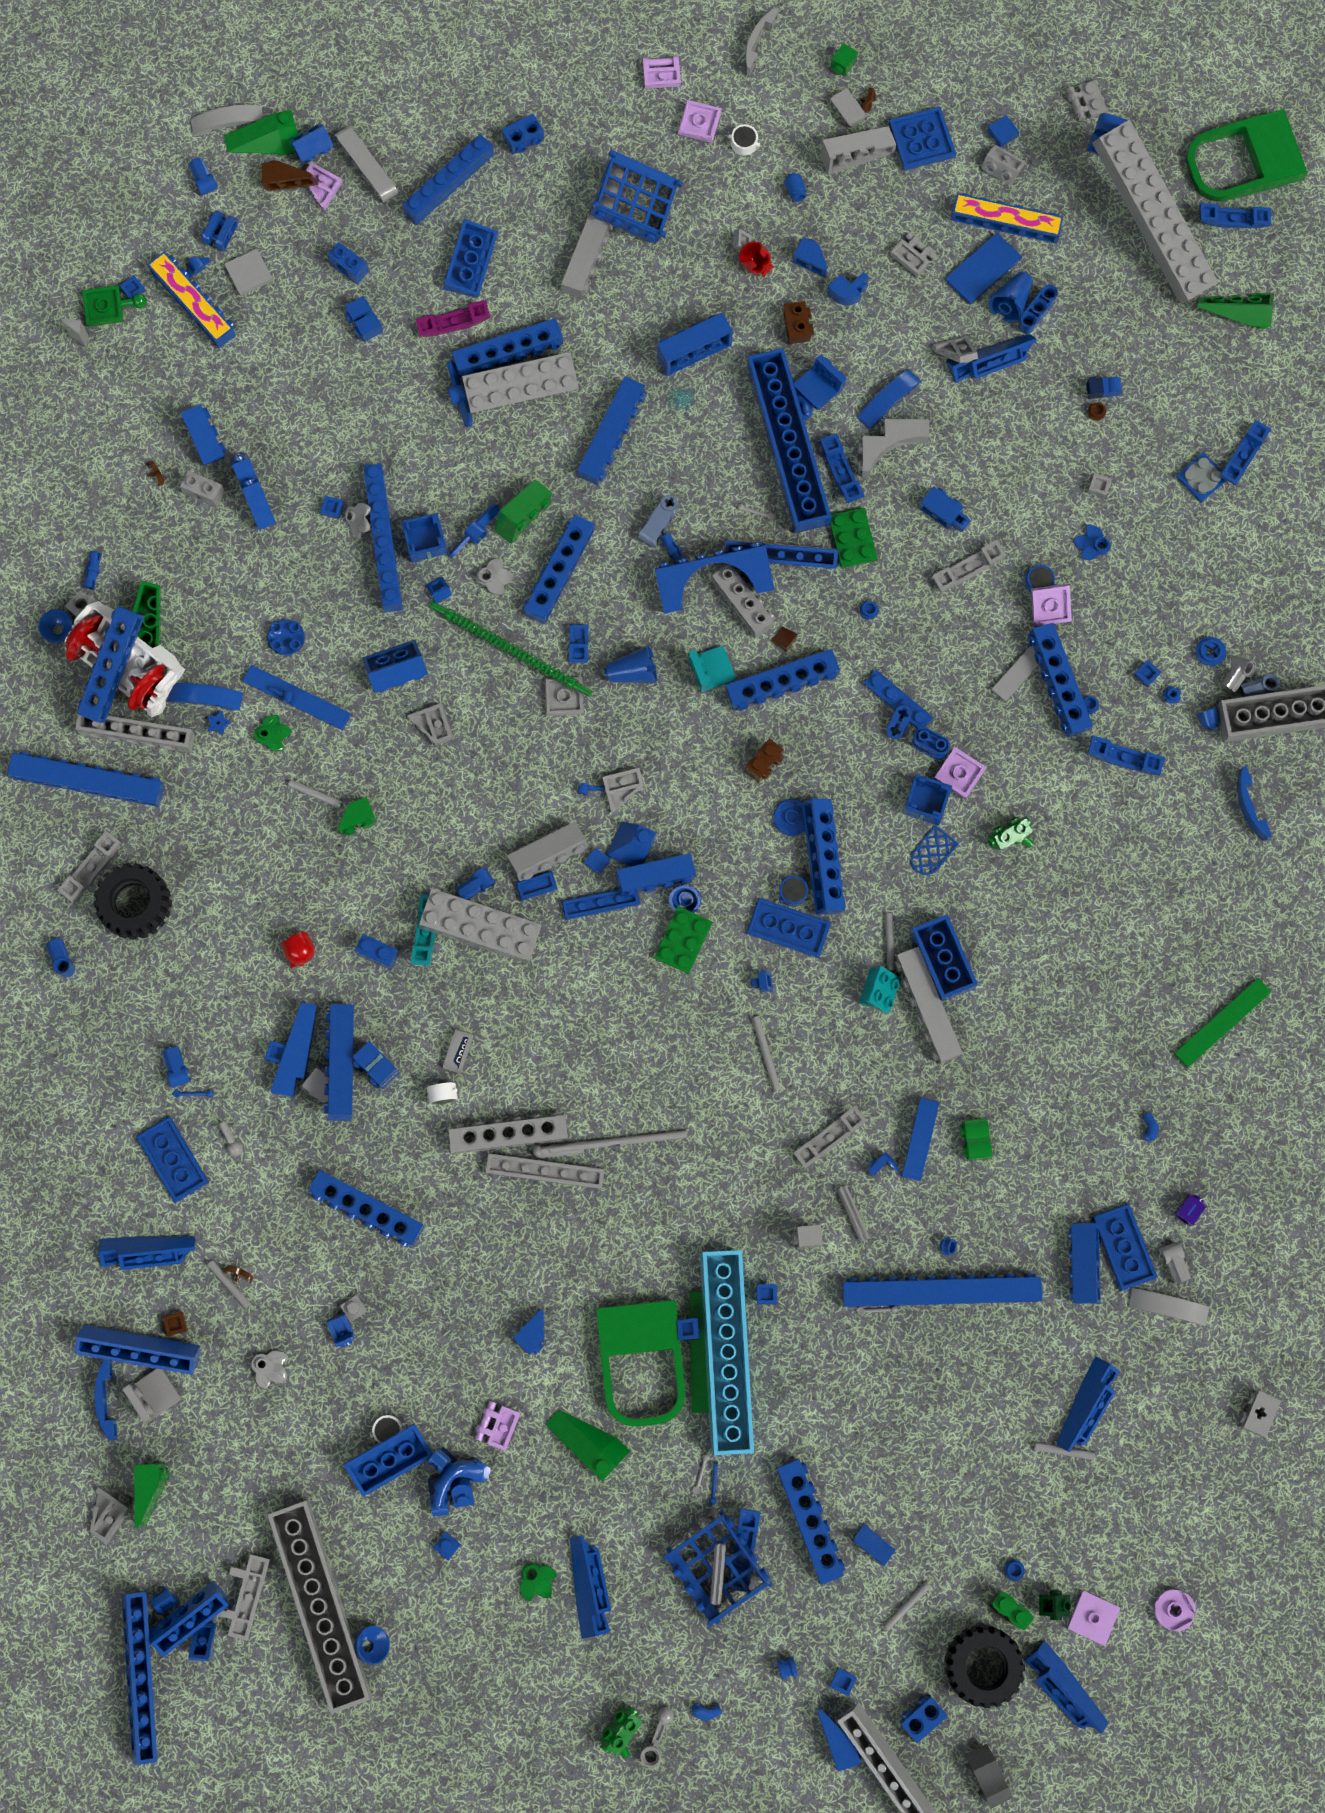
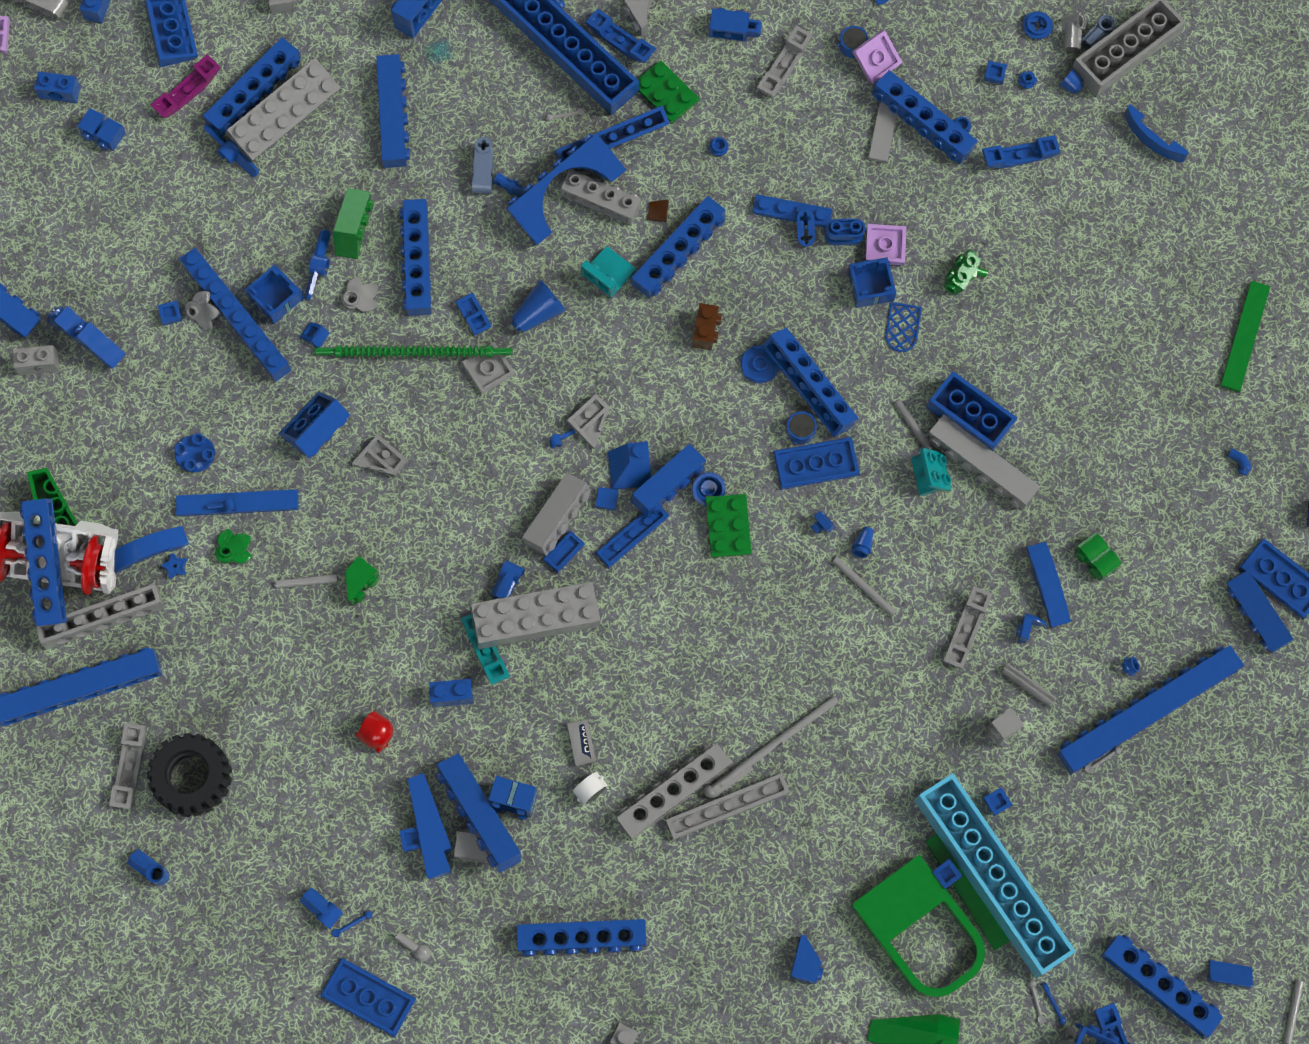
camera: 30 degrees left, 5 degrees down
(785, 1018) = (863, 543): none -> blue cone

